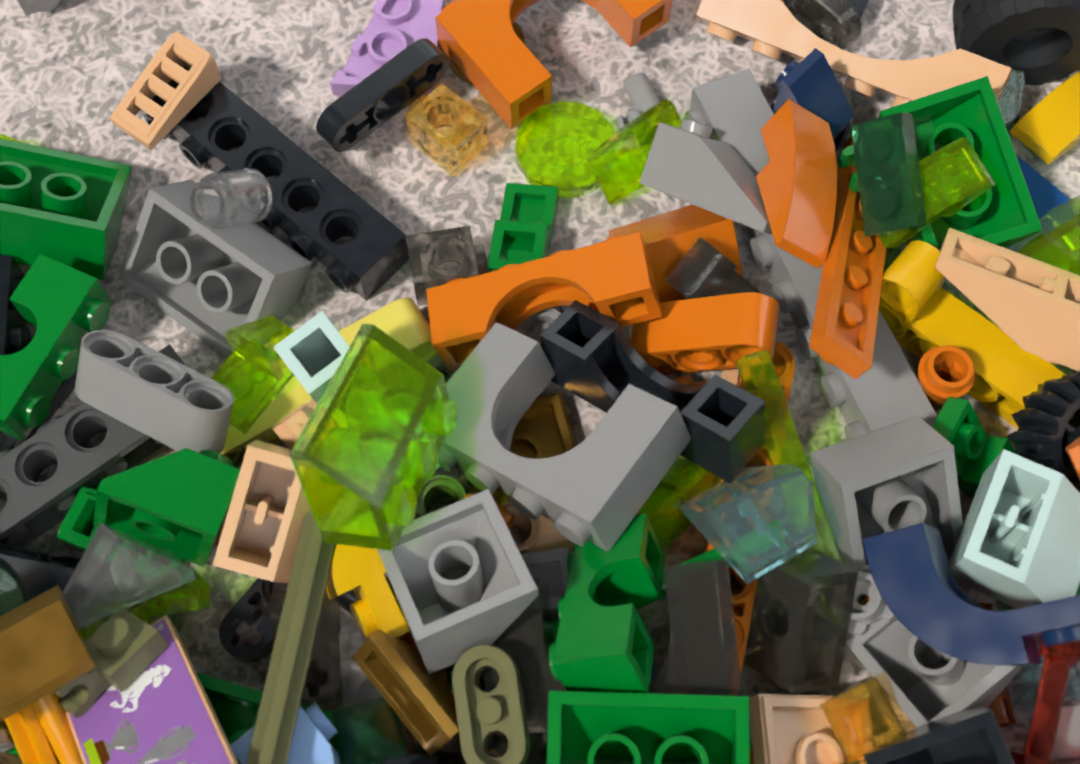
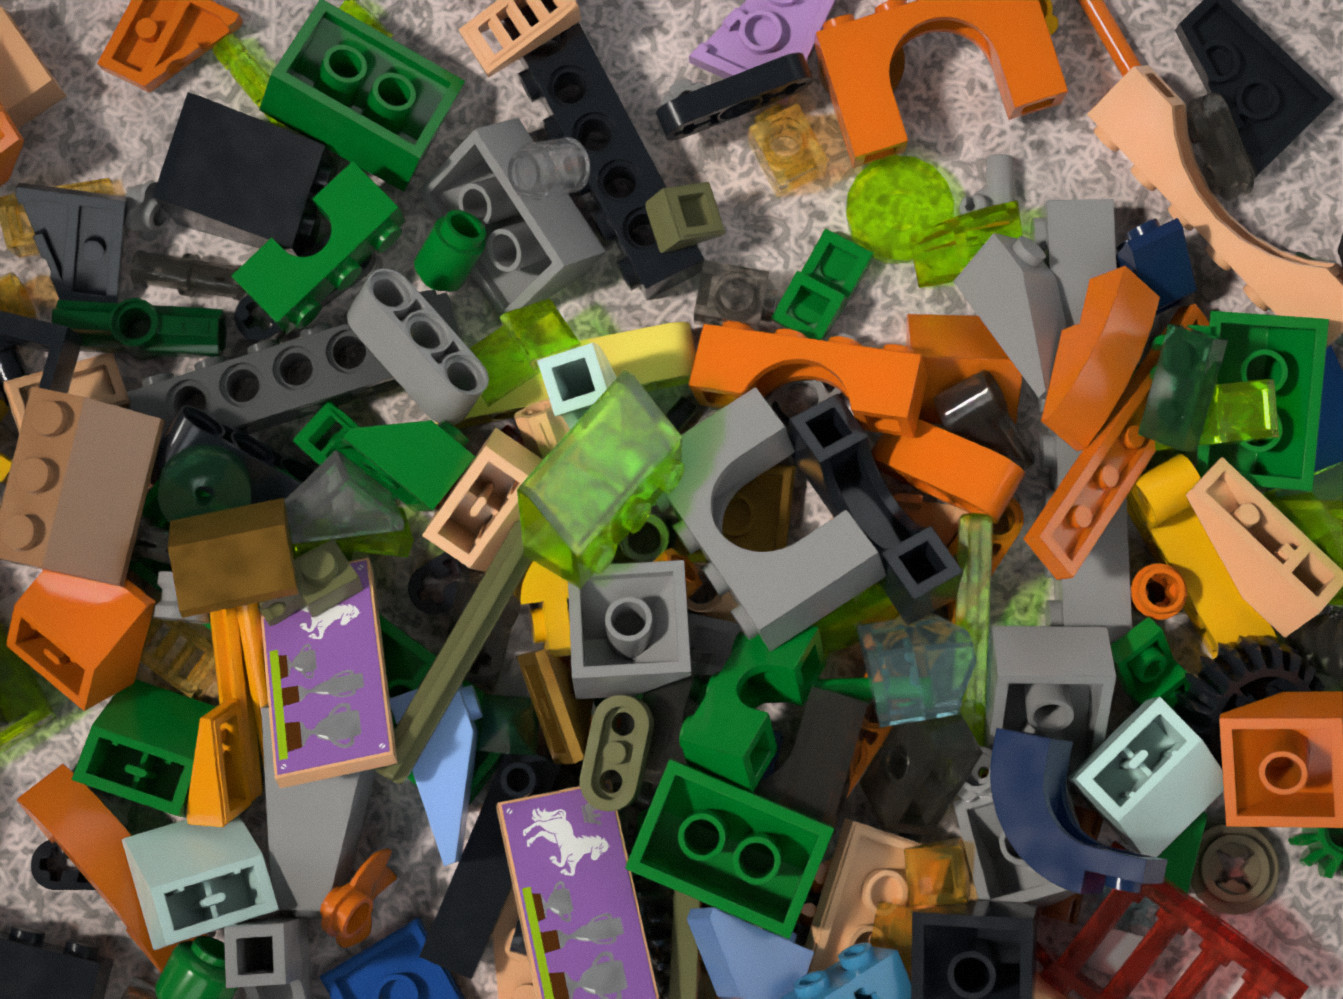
camera: 25 degrees right, 15 degrees up
(163, 309) = (450, 251): none -> green brick
(372, 203) = (684, 216): none -> olive slope

